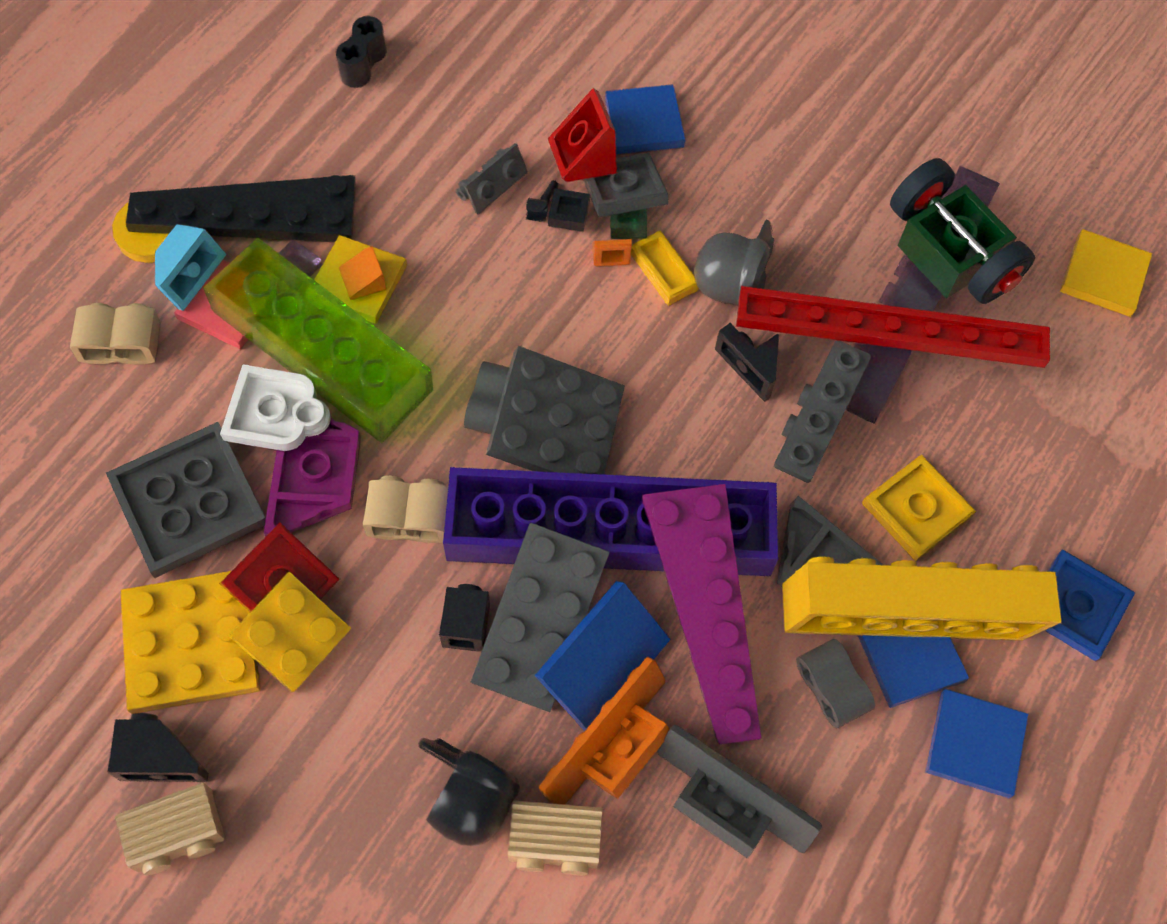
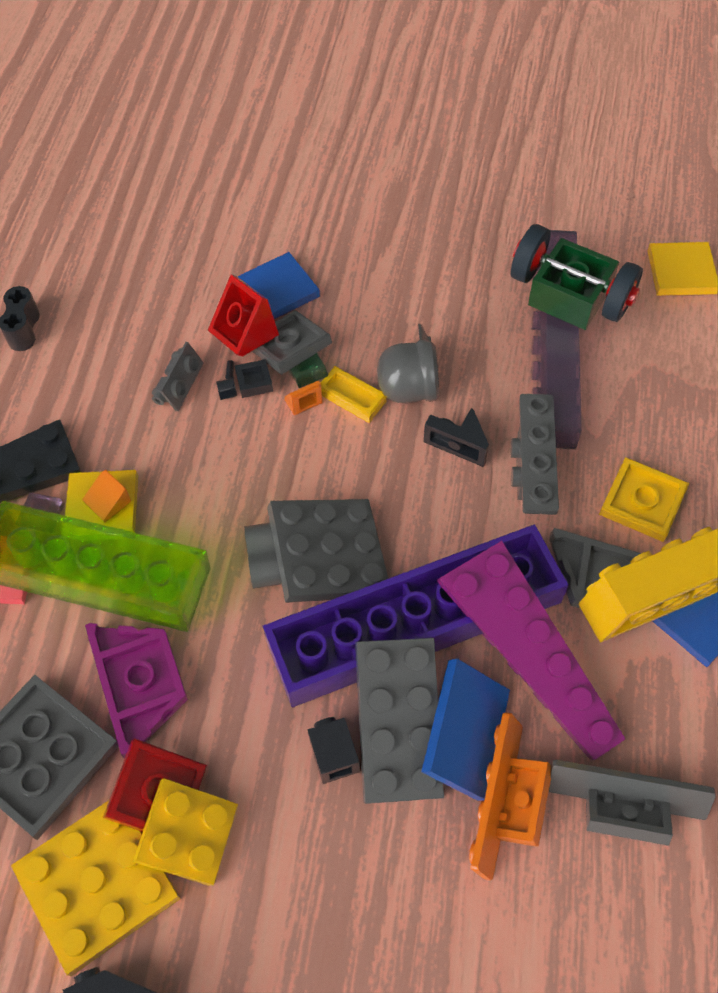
camera: 20 degrees left, 5 degrees down
(273, 410) = (81, 643): white plate -> none
(406, 510) = (239, 678): tan brick -> none
(474, 796) = (418, 904): black piece -> none
(555, 837) = (504, 904): tan brick -> none
(835, 683) = (658, 666): dark grey axle -> none
(894, 327) = (556, 367): red plate -> none

